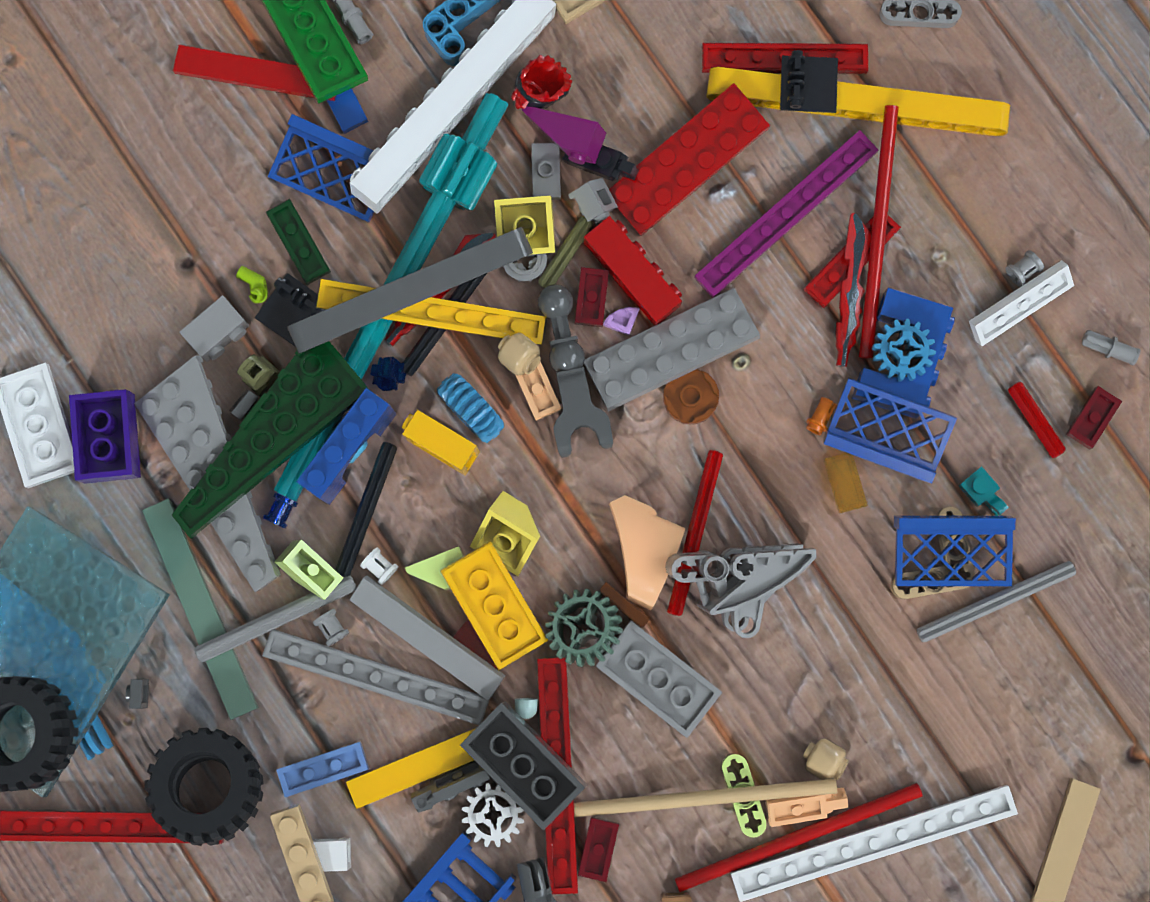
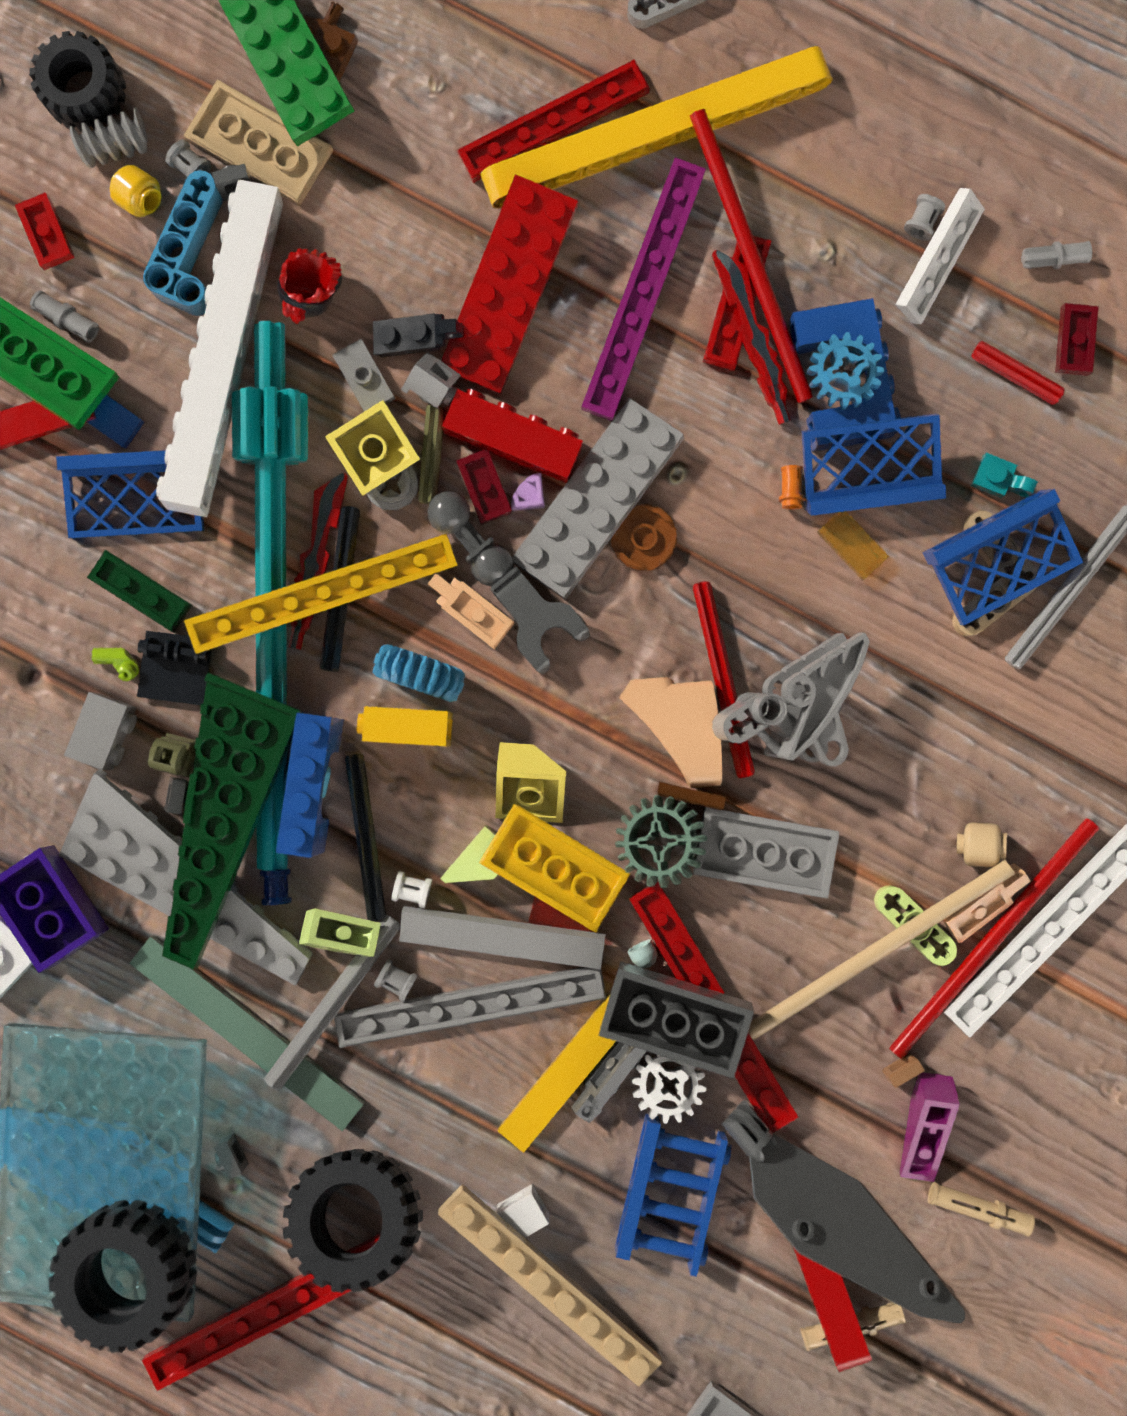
camera: 30 degrees left, 5 degrees up
(322, 769) = (466, 1131): medium blue plate -> none
(388, 374) = (311, 682): clear blue gear -> none
(409, 290) = (286, 582): dark grey beam -> none
(519, 354) = (440, 588): tan head -> none
(573, 135) = (373, 321): magenta slope -> none
(598, 849) = (795, 1060): dark red plate -> none
(808, 83) = (595, 133): black hinge -> none

